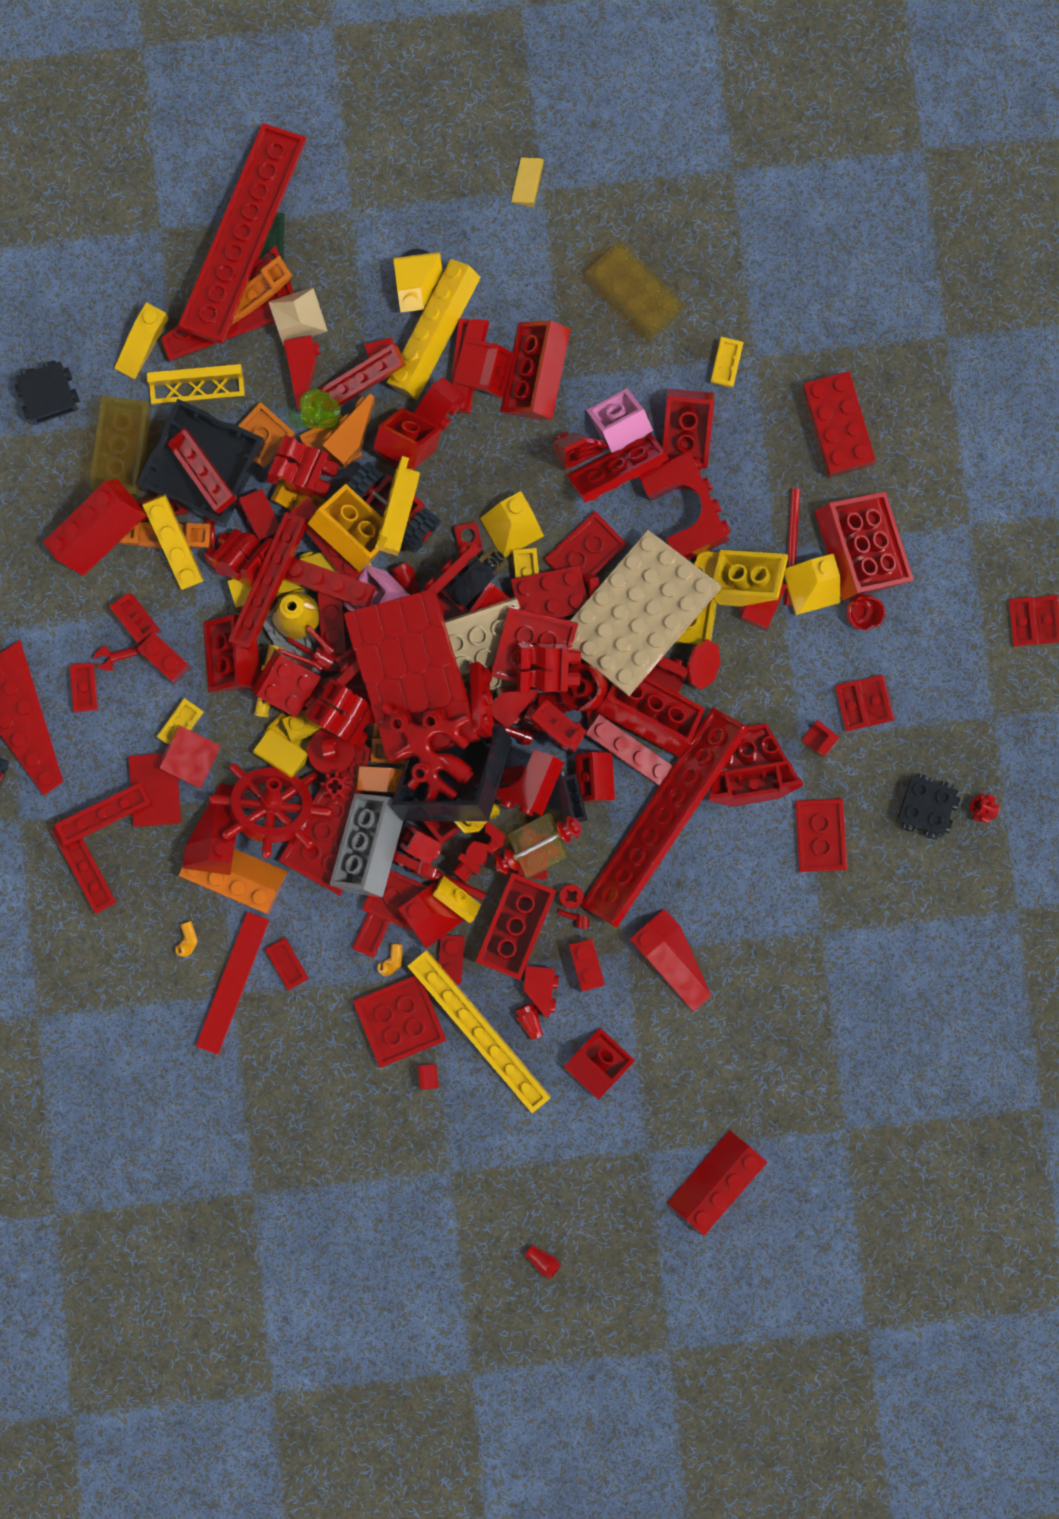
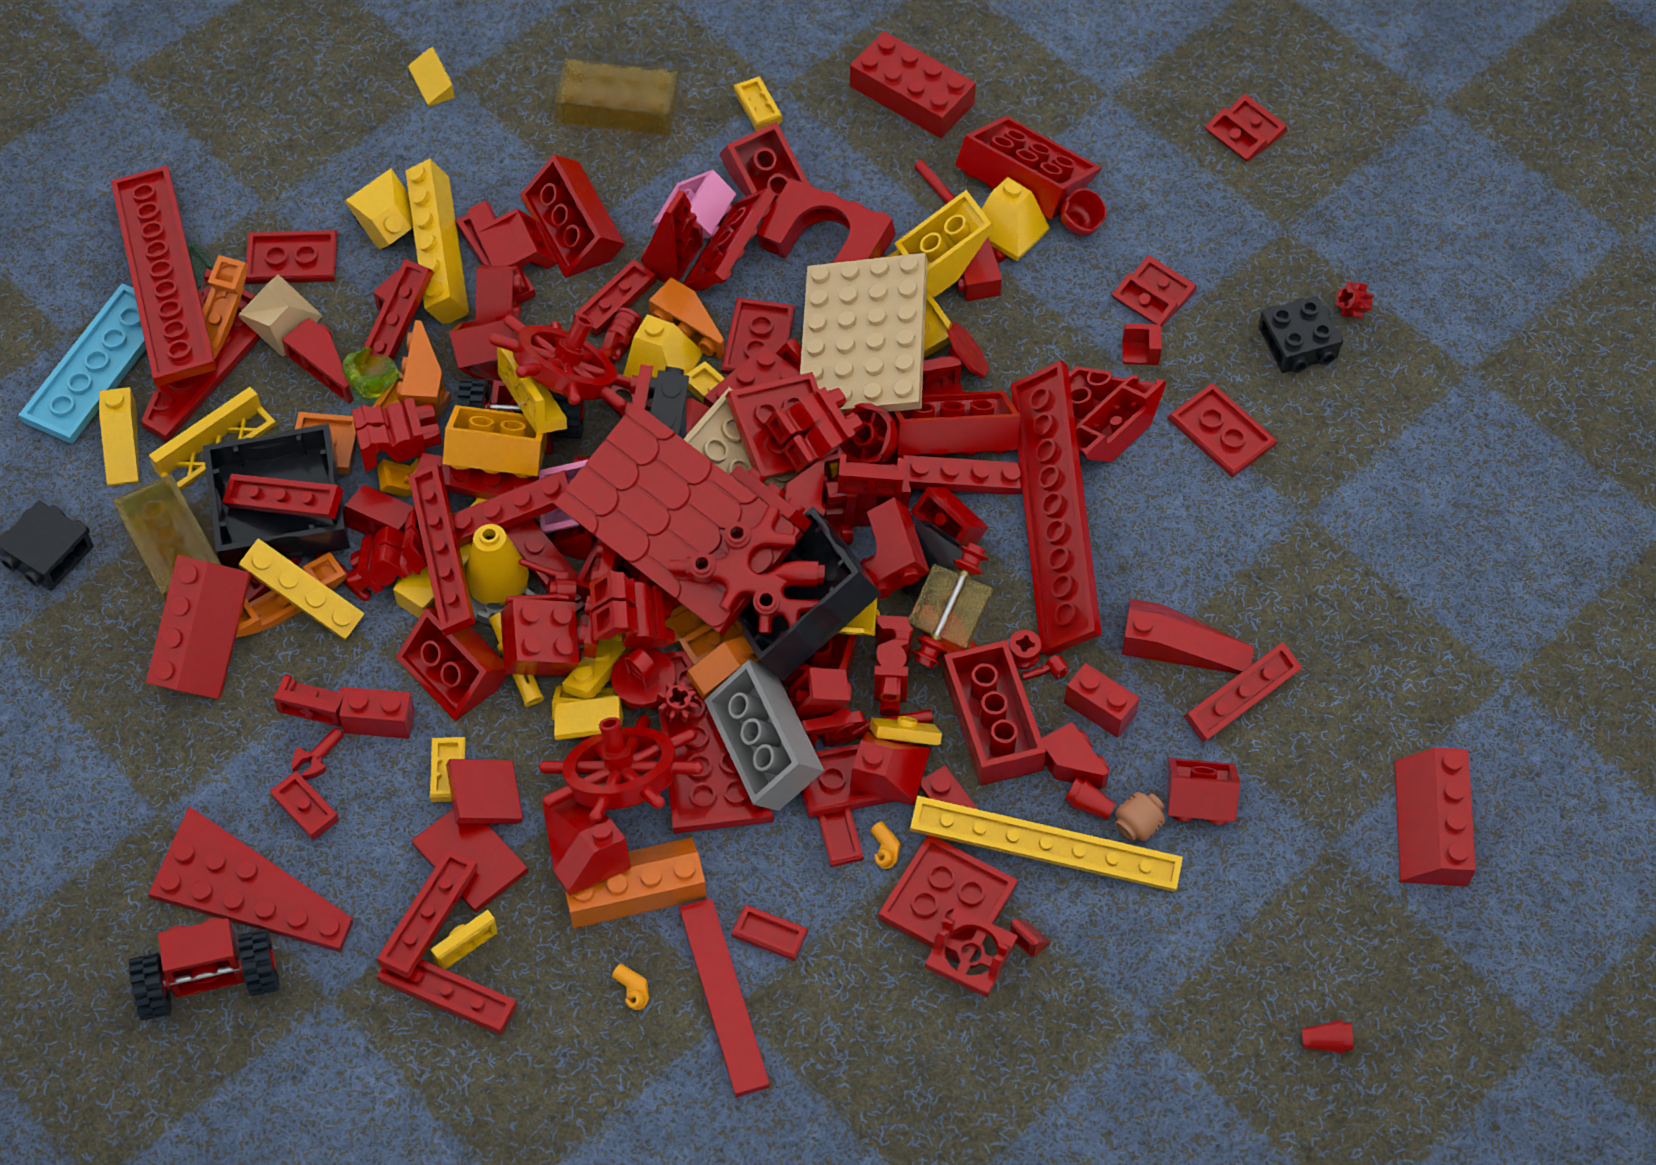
camera: 40 degrees left, 25 degrees down
(114, 842) = (464, 940): none -> yellow plate
(155, 271) = (93, 364): none -> medium azure plate
(338, 268) = (292, 255): none -> red tile
(390, 1042) = (979, 983): none -> red piece
(430, 504) = (564, 360): none -> red piece
(499, 487) = (621, 332): none -> red hinge
(518, 454) = (616, 294): none -> red plate
(548, 1054) = (1140, 817): none -> nougat head
(551, 499) = (684, 309): none -> orange slope
(676, 1021) = (1242, 692): none -> red plate

